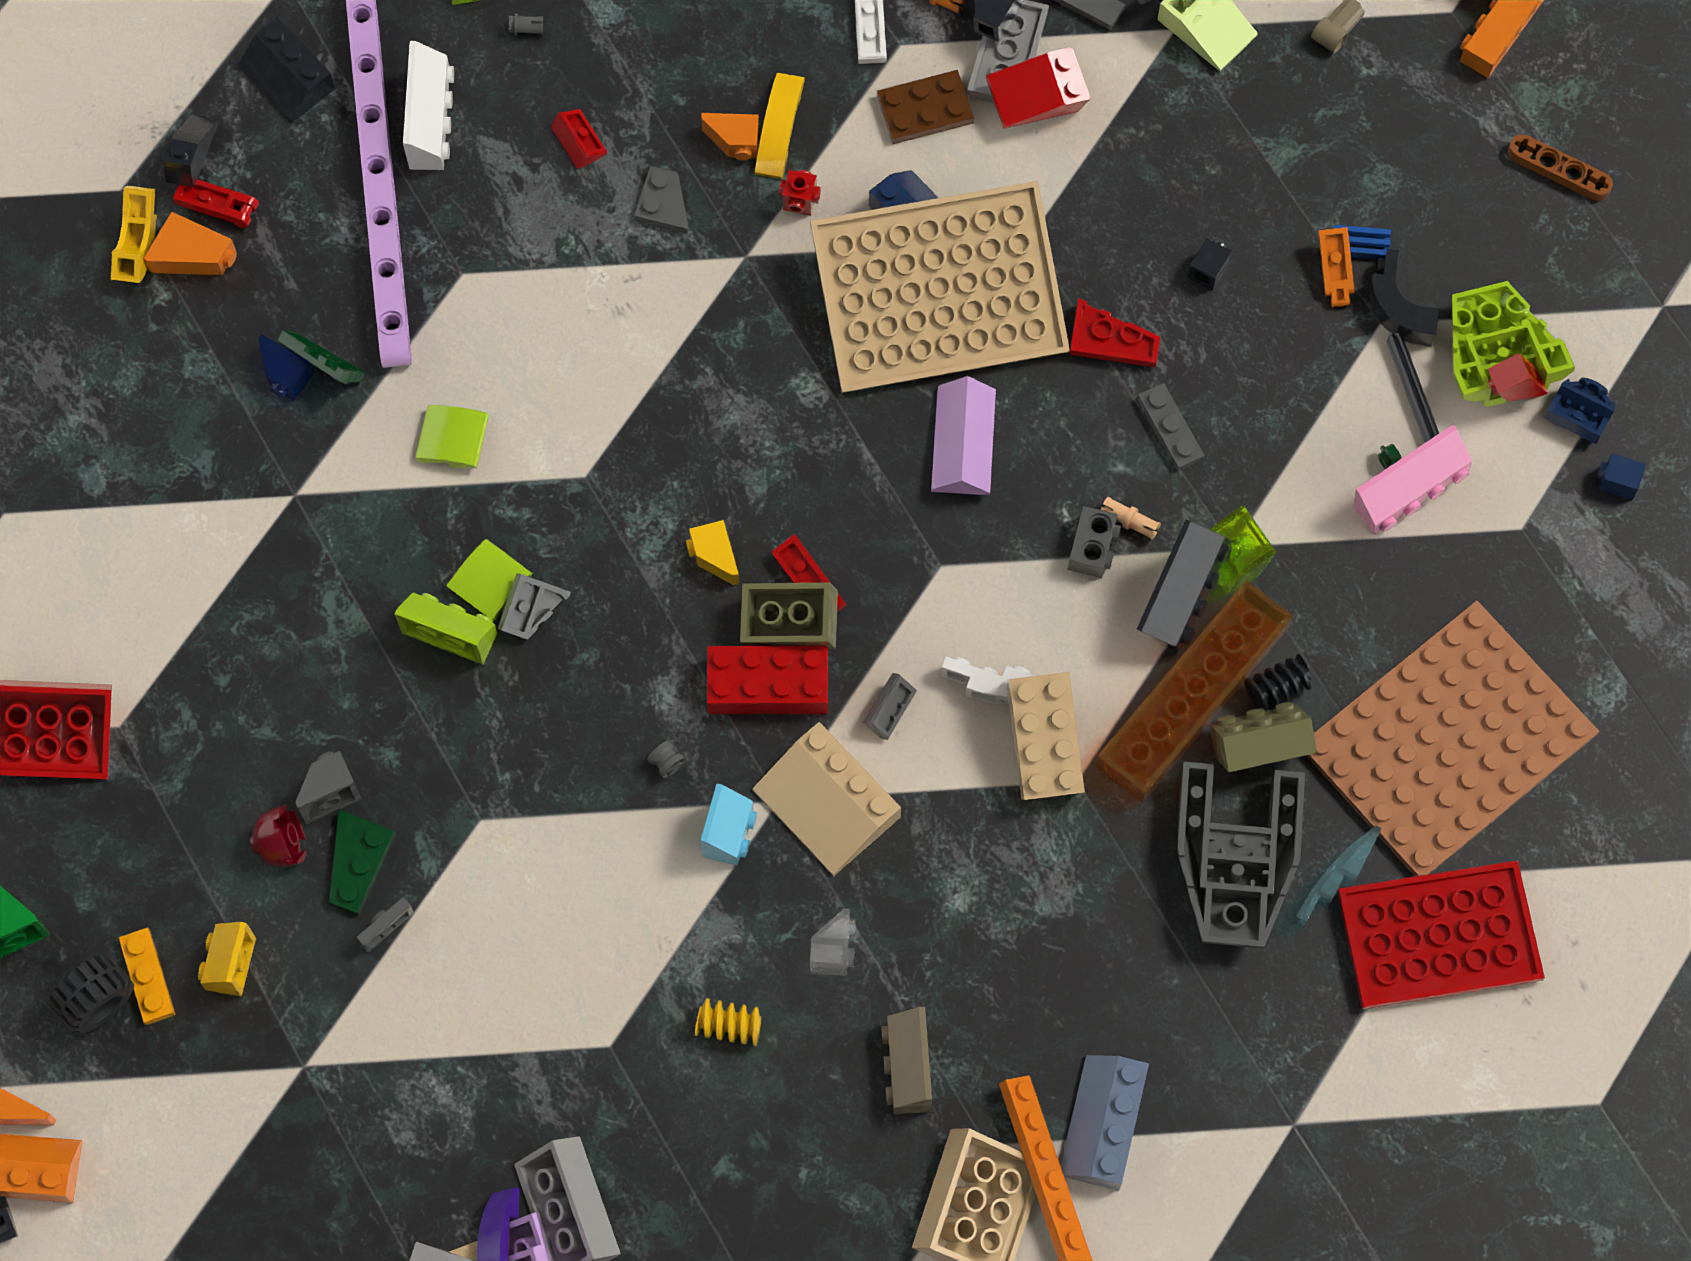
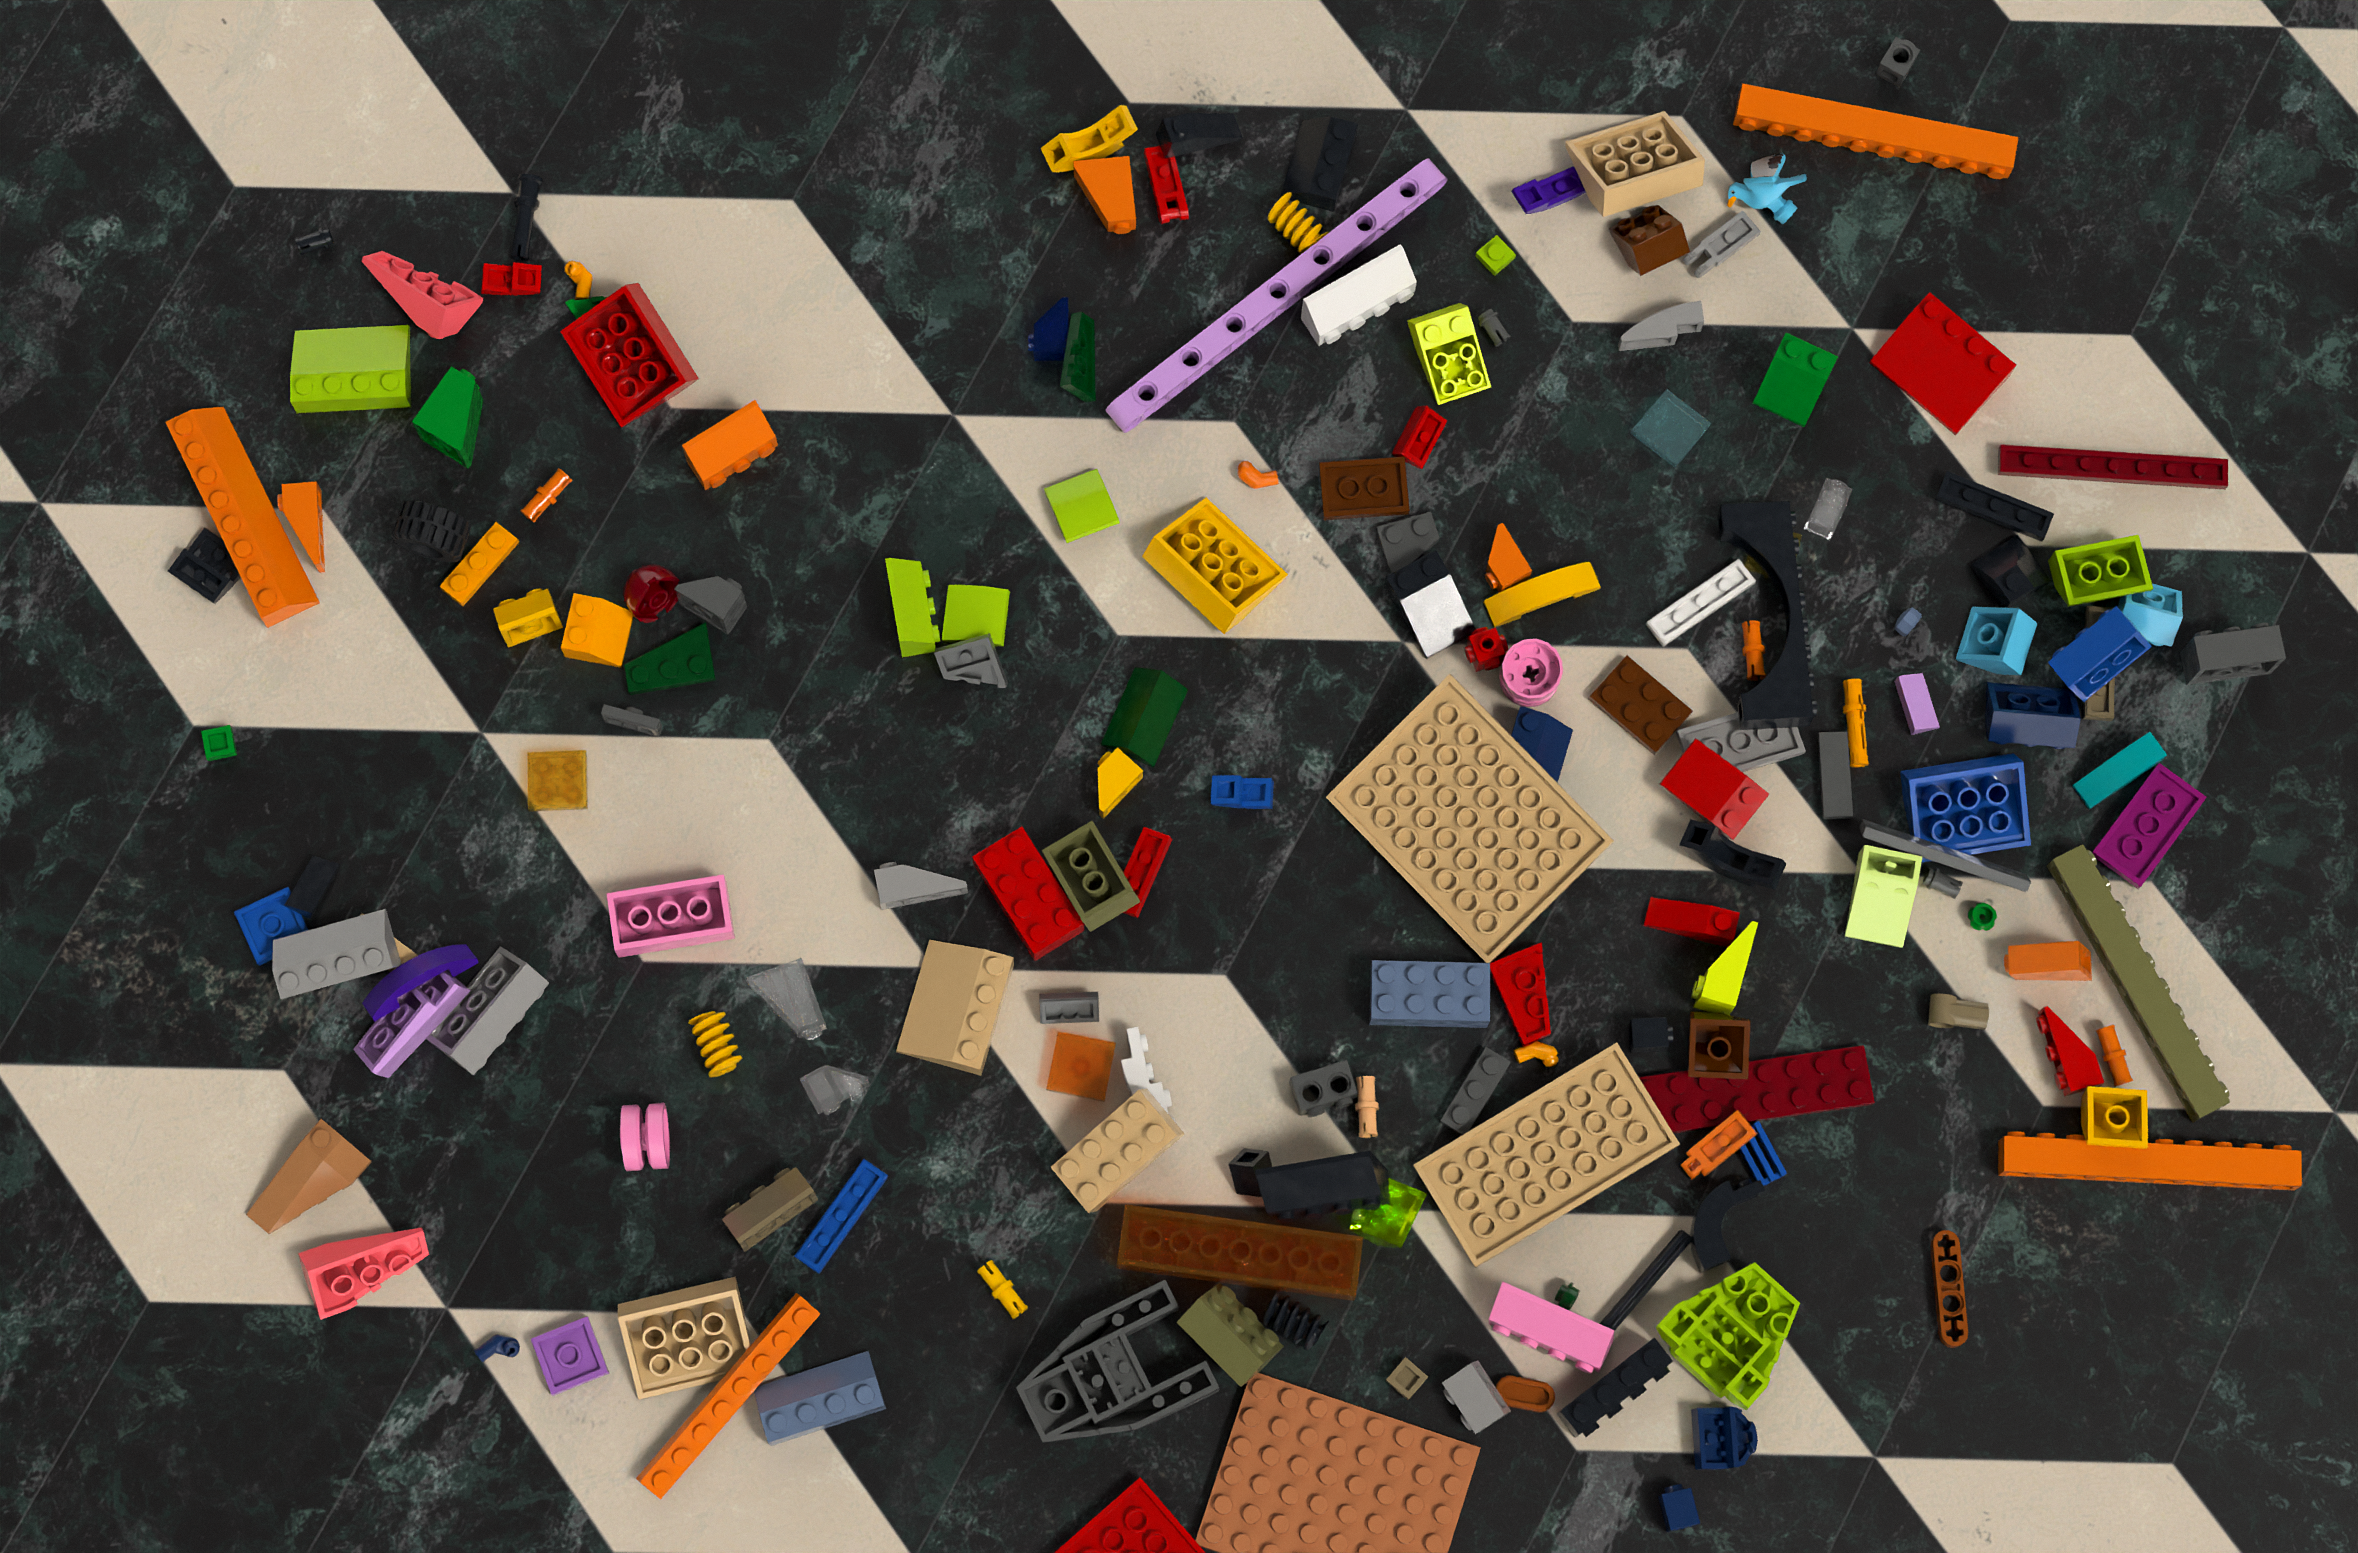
camera: 55 degrees right, 5 degrees up
(125, 879) = (546, 495): none -> orange pin
(195, 691) = (730, 446): none -> orange slope
(282, 907) = (596, 631): none -> light orange slope
(327, 120) = (1294, 224): none -> yellow piece
(396, 1022) = (557, 780): none -> clear yellow tile
(523, 69) = (1449, 353): none -> neon yellow slope
(524, 285) = (1255, 478): none -> orange arm
(579, 361) = (1214, 565): none -> yellow slope
(588, 993) = (670, 916): none -> bright pink brick
(594, 205) = (1364, 488): none -> reddish brown plate
(666, 759) = (909, 853): dark grey wheel -> none
(670, 495) = (1145, 715): none -> dark green slope
(694, 773) = (909, 885): none -> light grey slope
(727, 826) = (879, 938): medium azure slope -> none
(730, 213) = (1429, 604): none -> slope
(730, 934) = (790, 997): none -> clear slope
(777, 1131) = (640, 1137): none -> bright pink wheel
(792, 457) = (1242, 792): none -> blue slope
(848, 153) = (1540, 660): none -> bright pink wheel
(947, 727) = (1081, 1066): none -> clear orange plate
(951, 1008) = (841, 1216): none -> blue tile
(963, 437) = (1350, 924): lavender slope -> none
(1066, 410) = (1429, 994): none -> sand blue brick
(1094, 119) = (1729, 859): none -> black arch
(1102, 908) = (1002, 1289): none -> yellow pin
(1128, 643) = (1243, 1170): none -> black panel
(1135, 173) = (1693, 920): none -> red slope
(1167, 356) = (1539, 1050): none -> light orange arm
(1202, 174) = (1722, 982): none -> neon yellow slope
(1253, 214) = (1718, 1046): none -> reddish brown slope
(1262, 400) = (1546, 1155): none -> tan plate
(1292, 241) = (1772, 1091): none -> dark red plate
(1342, 870) = (1163, 1472): clear light blue slope -> none
(1383, 624) = (1406, 1378): none -> dark tan plate
(1433, 576) = (1475, 1397): none -> light grey brick
(1451, 540) = (1526, 1393): none -> dark orange tile
(1491, 464) = (1616, 1386): none -> black brick
(1516, 379) = (1702, 1364): red slope -> none

